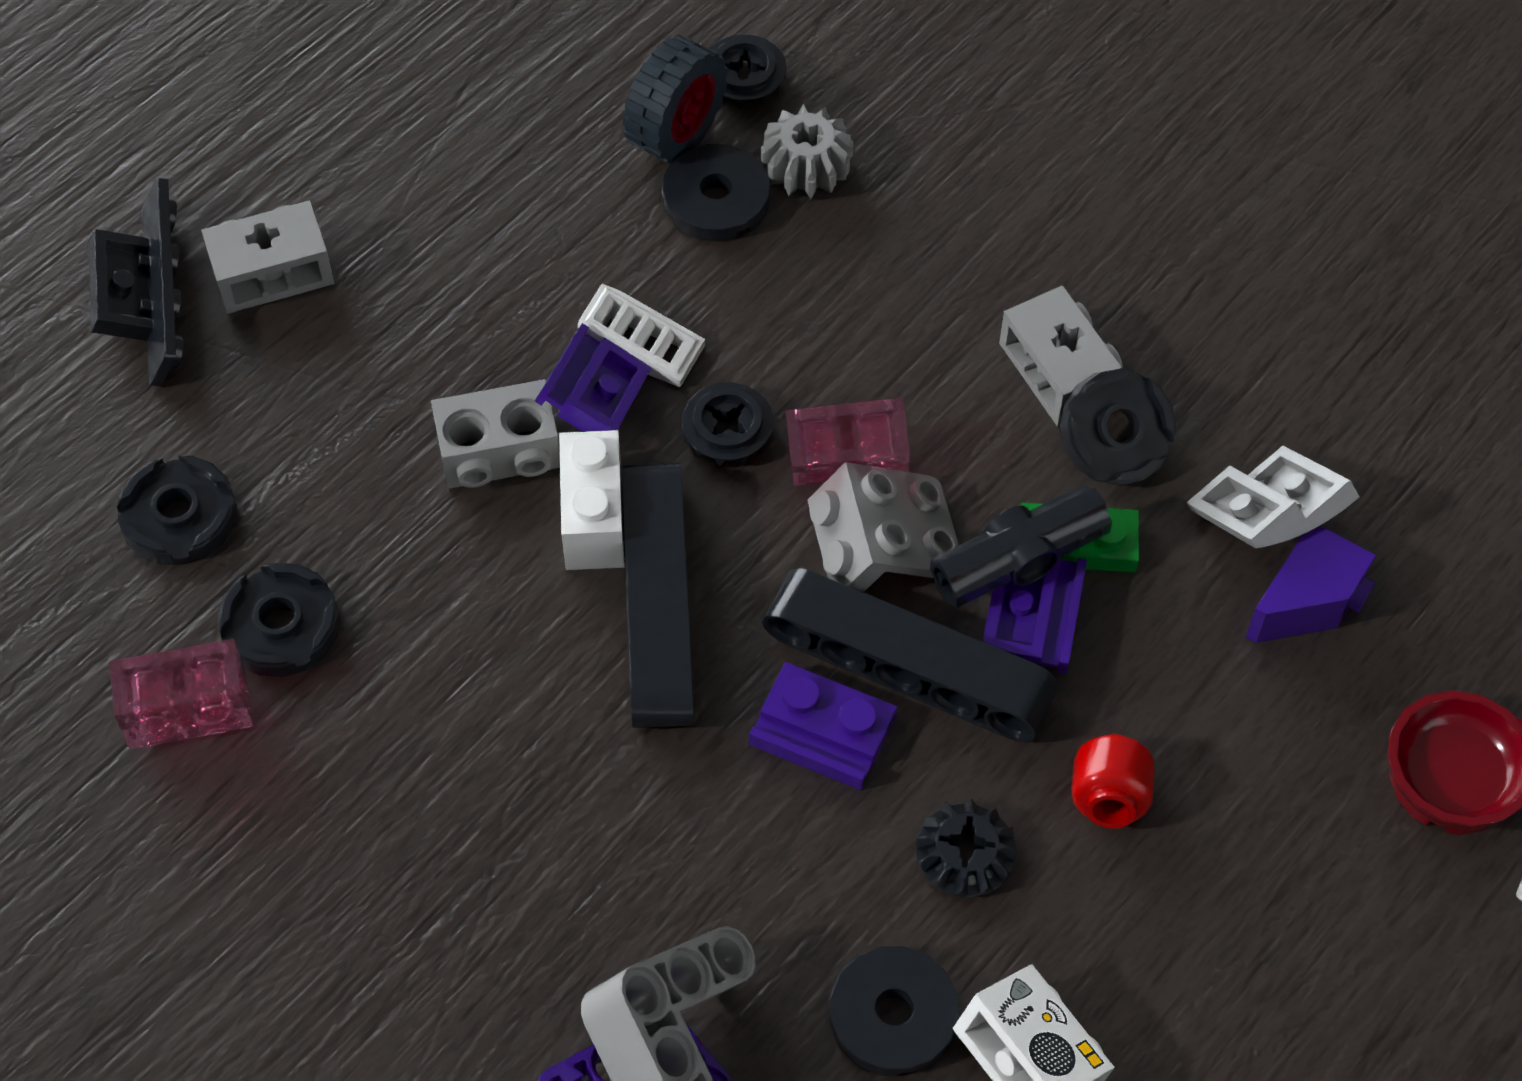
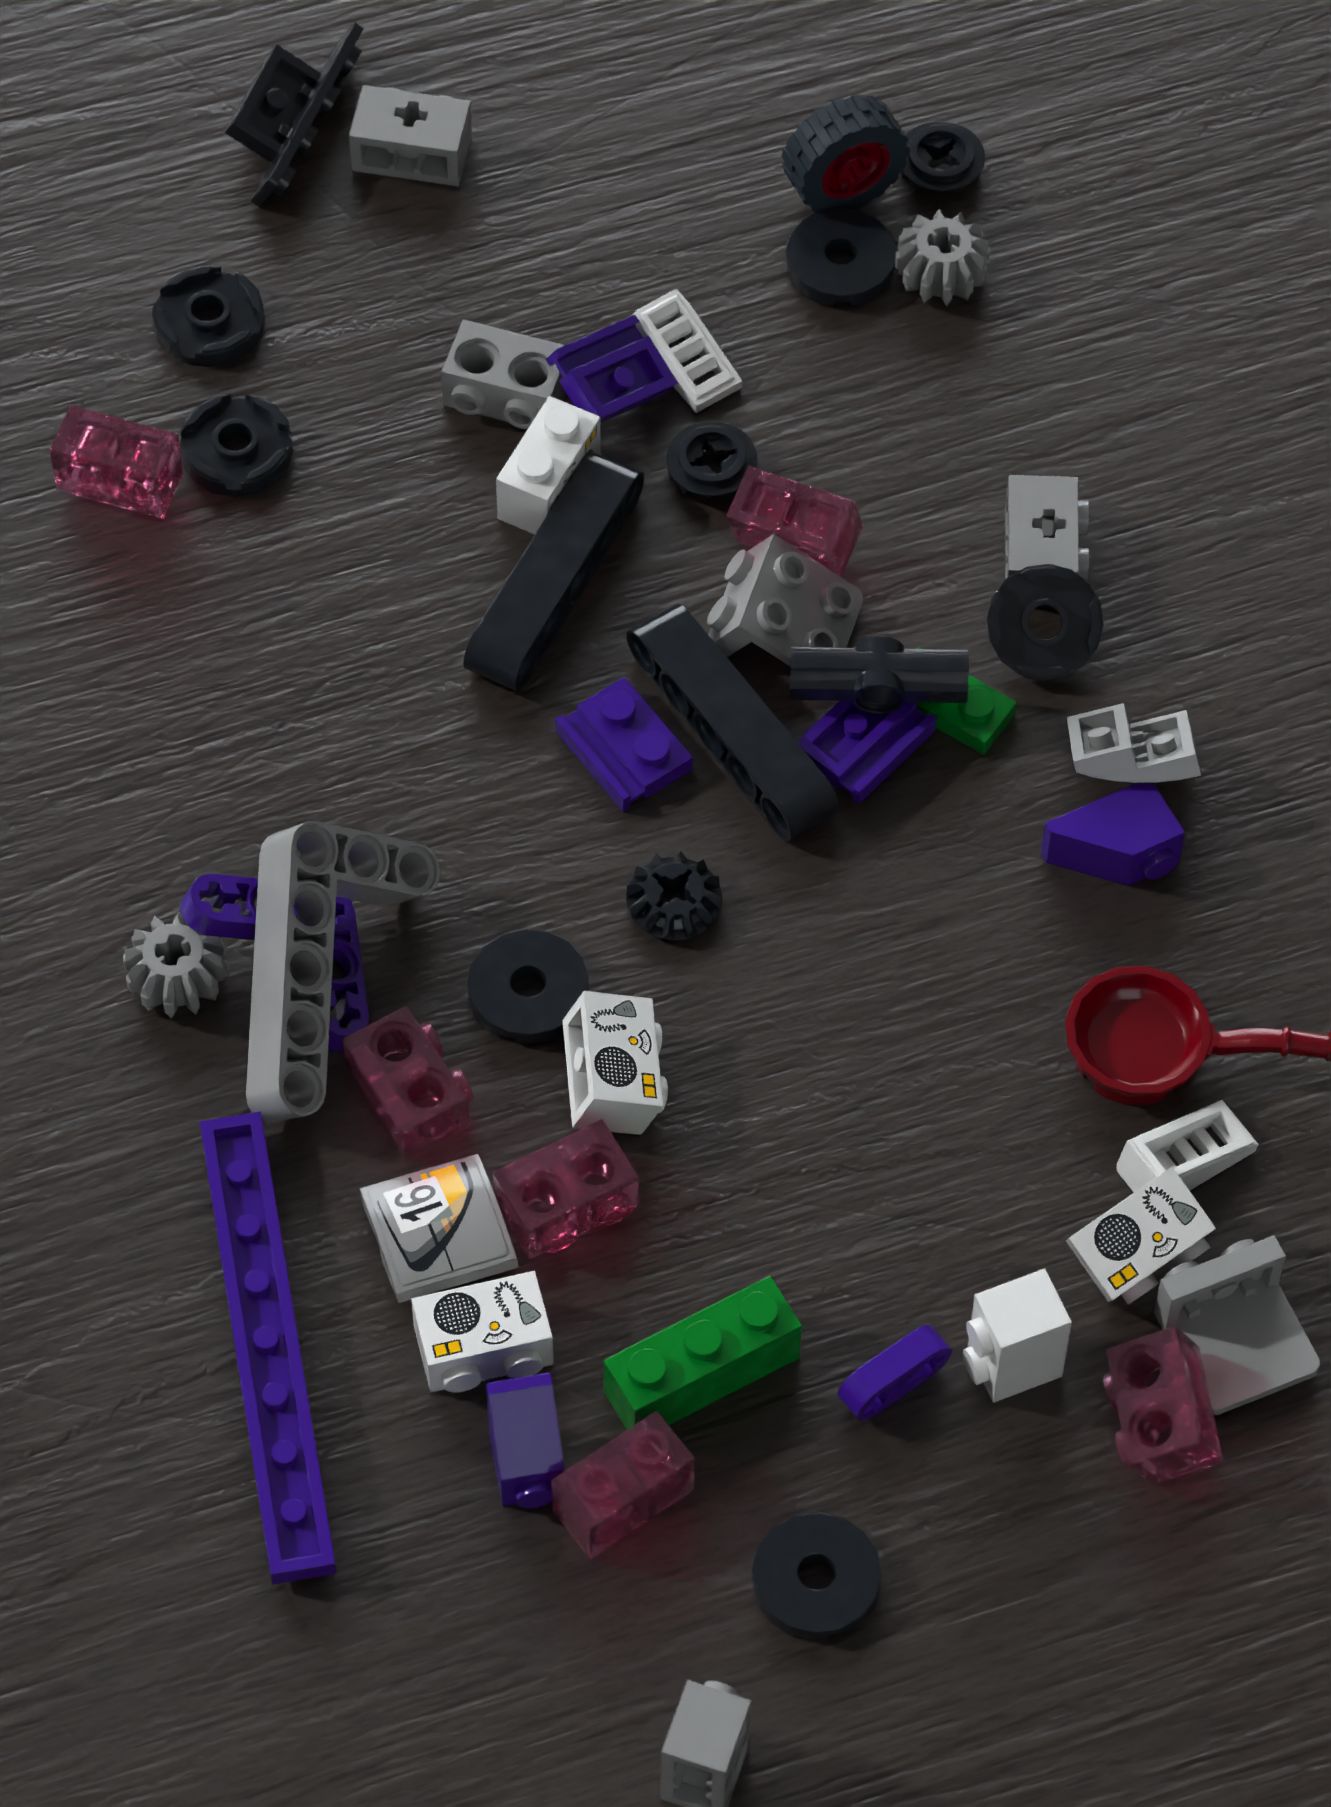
camera: 30 degrees right, 0 degrees up
(1113, 780) = (829, 902): red head -> none

